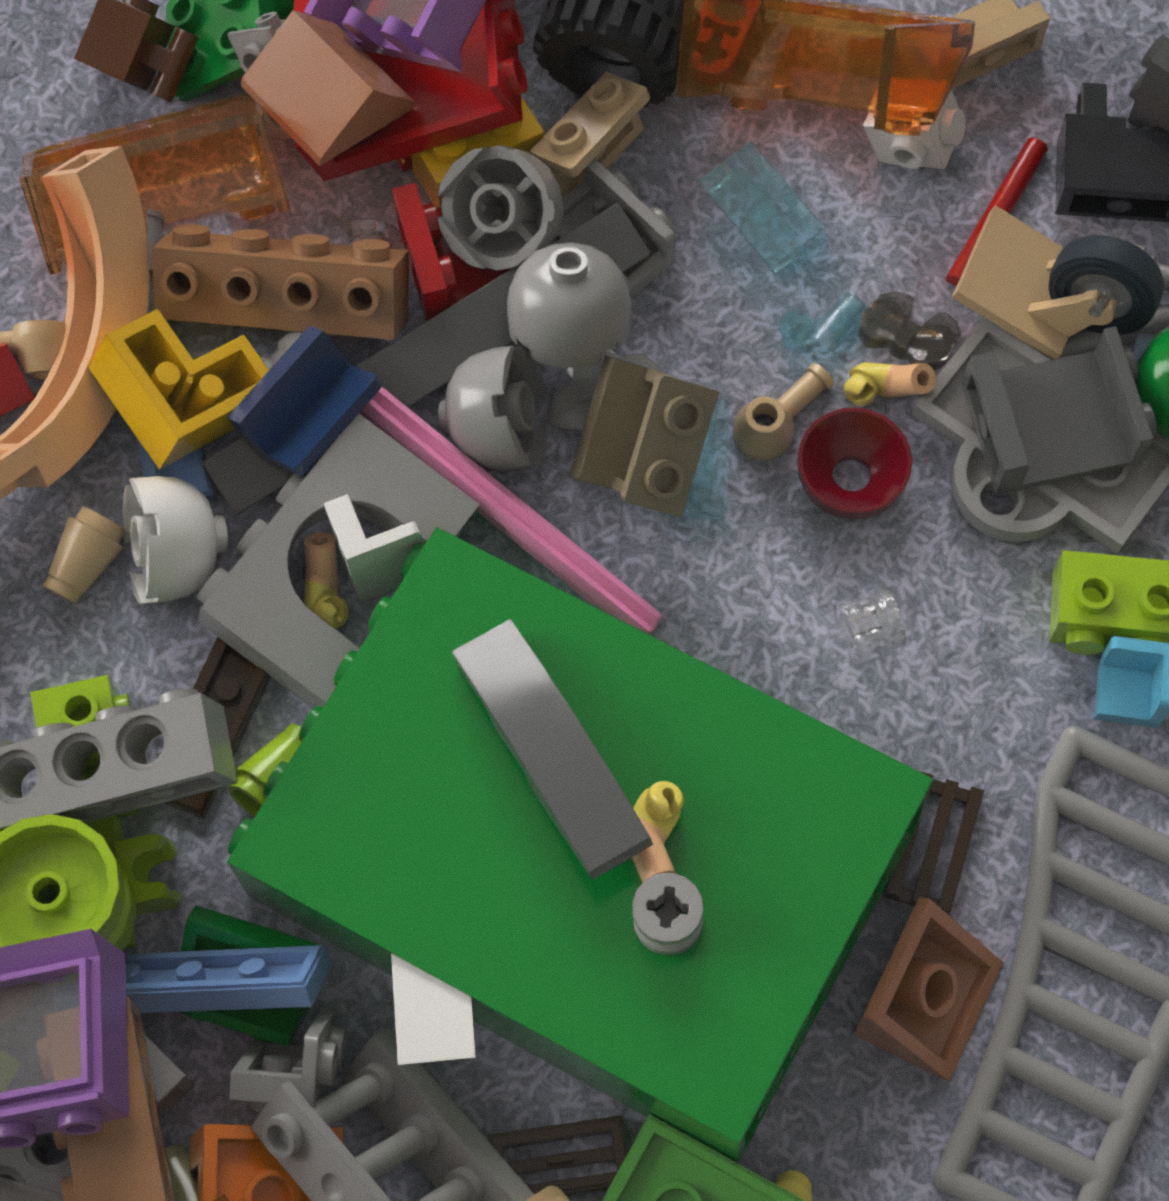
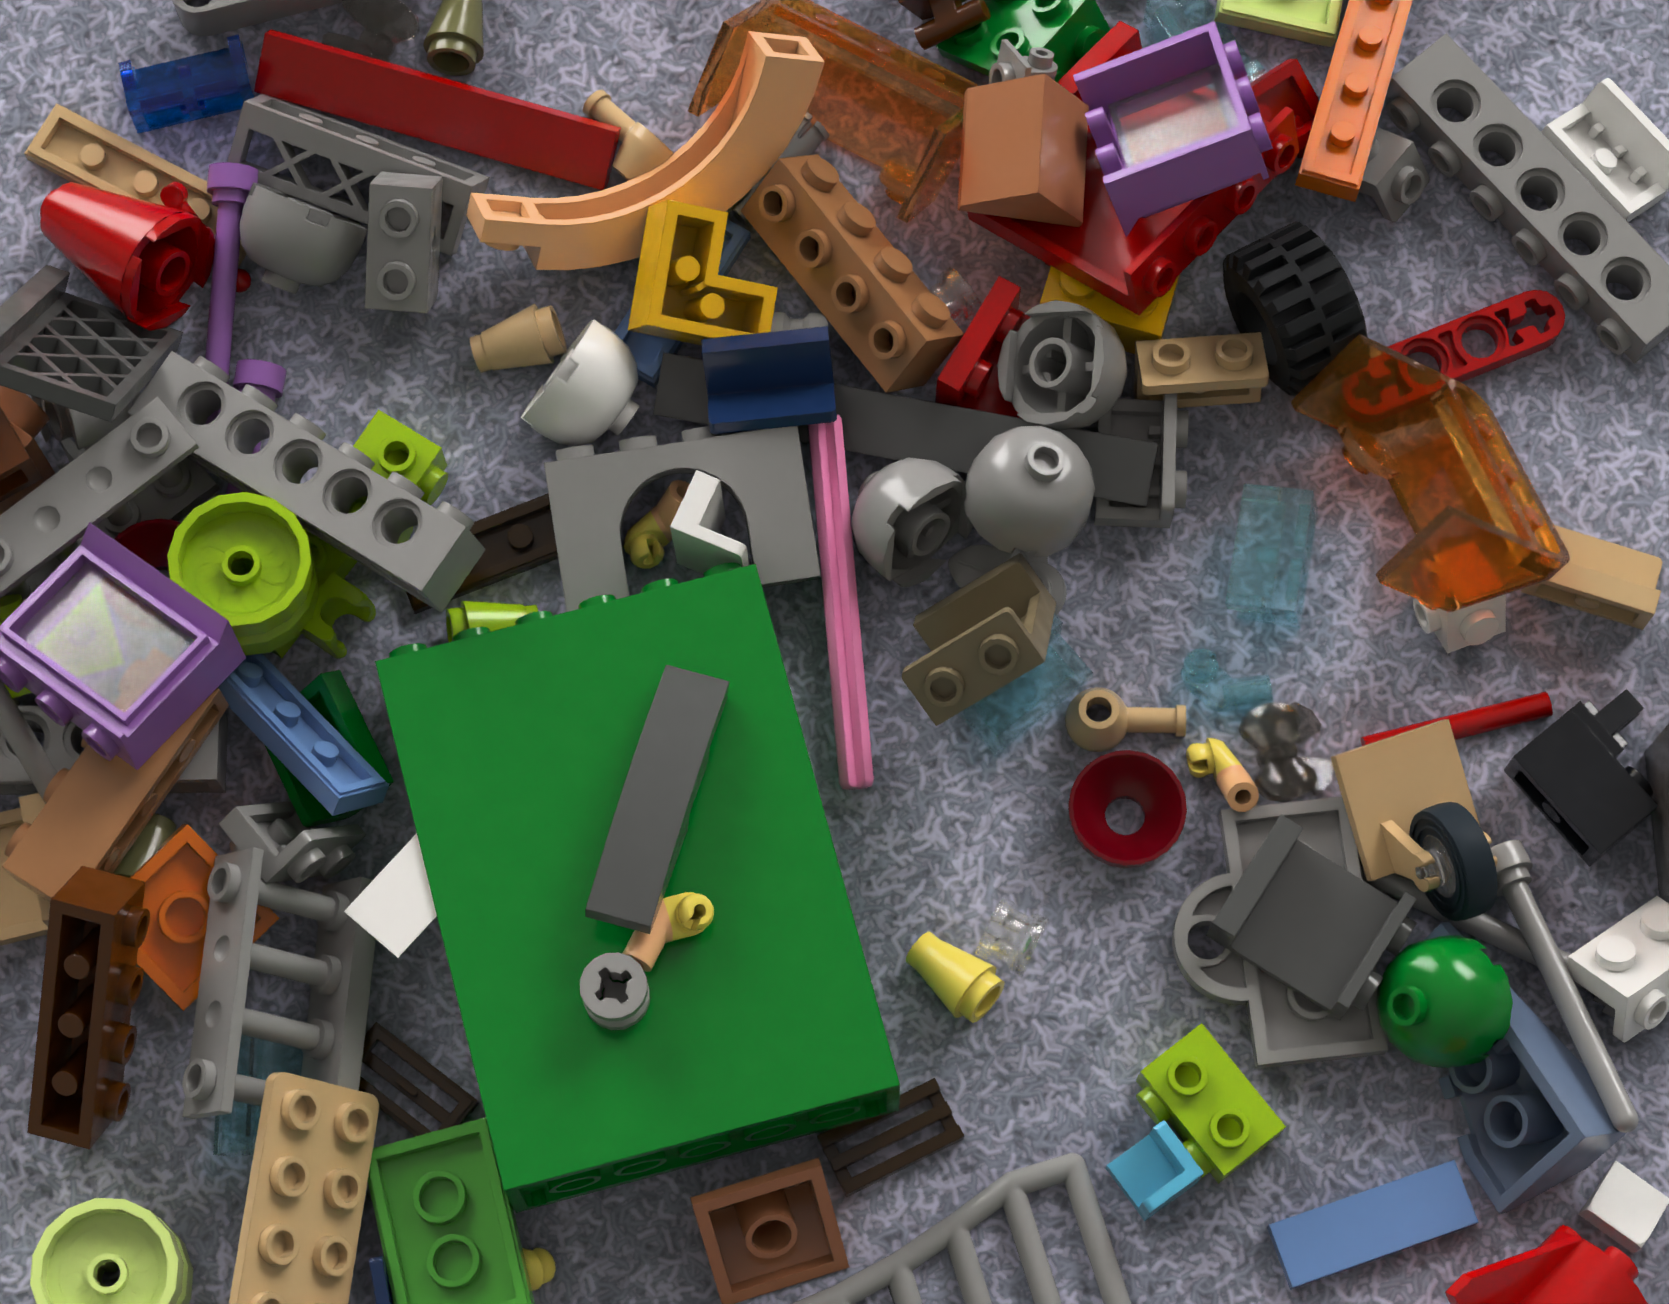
camera: 45 degrees right, 5 degrees up
(860, 688) = (957, 978): none -> light yellow cone

